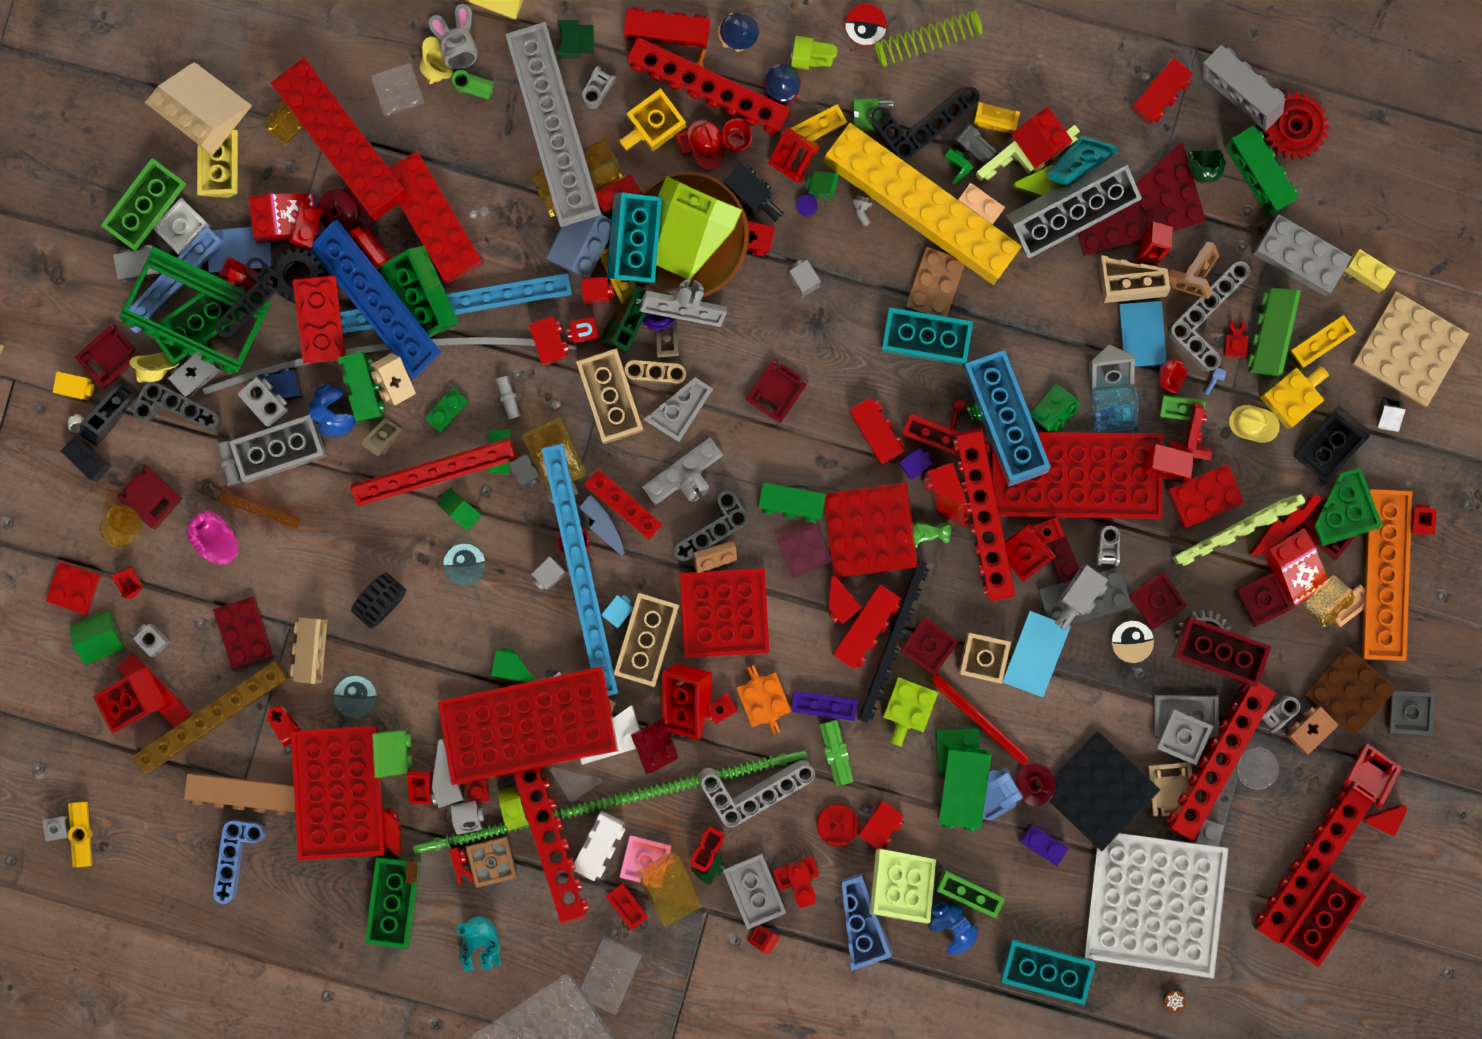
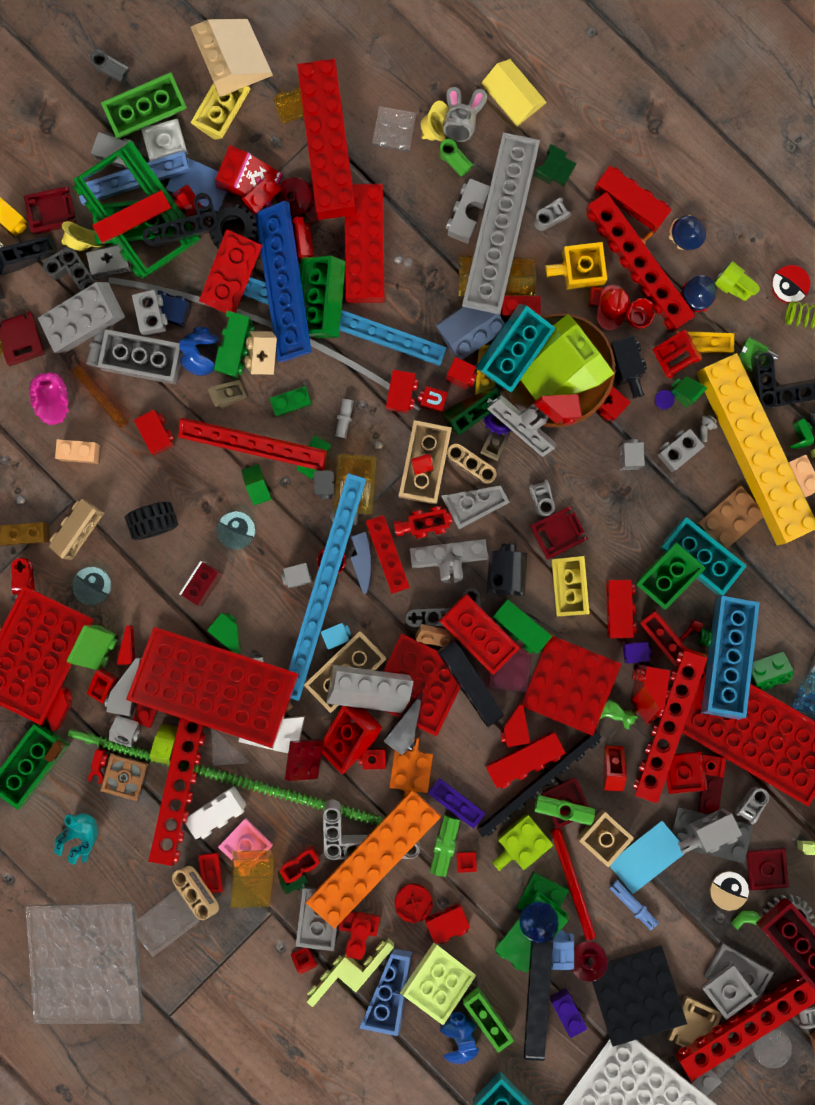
camera: 25 degrees right, 0 degrees up
(87, 184) = (110, 66): none -> dark grey piece
(195, 319) = (131, 217): none -> red tile
(199, 443) = (81, 317): none -> light grey brick
(243, 633) = (32, 486): dark red plate -> none
(268, 574) = (77, 451): none -> light nougat brick
(332, 514) = (154, 432): none -> red brick
(426, 740) = (127, 649): none -> red slope
(460, 633) = (201, 583): none -> dark red piece
(515, 148) = (474, 195): none -> light grey arch
(607, 399) = (422, 464): none -> red slope
(612, 933) = (196, 902): none -> tan beam
(645, 451) = (428, 523): none -> red brick
(678, 643) = (369, 689): none -> light grey slope
(709, 272) = (560, 408): none -> red slope
(735, 662) = (403, 732): none -> slope
(741, 365) = (542, 496): none -> light grey piece
(747, 456) = (507, 571): none -> black cylinder
(754, 531) = (479, 634): none -> red tile
(773, 583) = (470, 683): none -> black beam
(773, 802) = (373, 858): none -> orange plate
(813, 924) = (350, 971): none -> yellowish green bracket
(816, 436) = (570, 586): none -> light yellow slope
(854, 247) = (683, 453): none -> light grey brick
(865, 756) = (466, 861): none -> red plate
(905, 372) = (670, 575): none -> green slope
(916, 656) = (576, 812): none -> bright green piece
(956, 587) = (614, 768): none -> red slope
(963, 771) = (539, 922): none -> clear blue dish
(1005, 845) = (538, 1000): none -> black beam
(1049, 707) = (640, 911): none -> medium blue pin
(1161, 658) = (745, 917): none -> bright green arm

